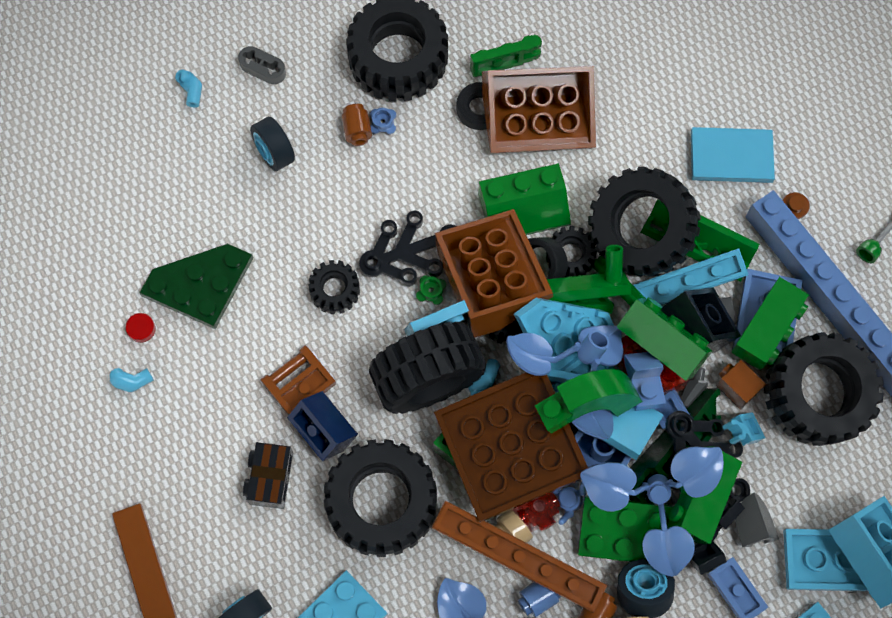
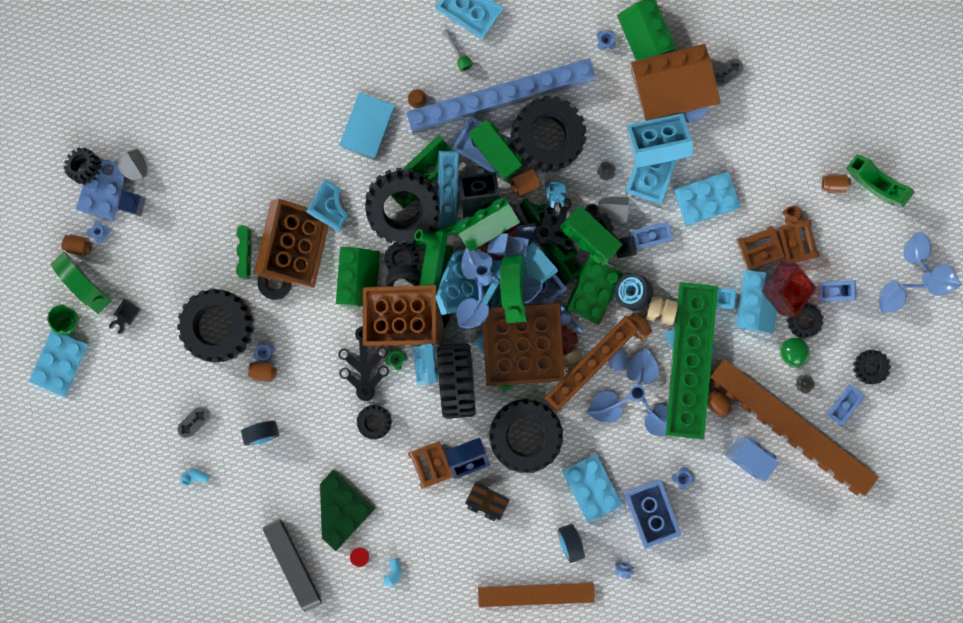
camera: 65 degrees left, 15 degrees up
(104, 242) = (292, 565): none -> dark grey beam
(488, 379) = (463, 338): medium azure arm -> none
(604, 136) = (327, 206): none -> medium azure tile
(695, 469) = (578, 240): medium blue plant -> none
(810, 490) = (611, 171): none -> clear smoke plate

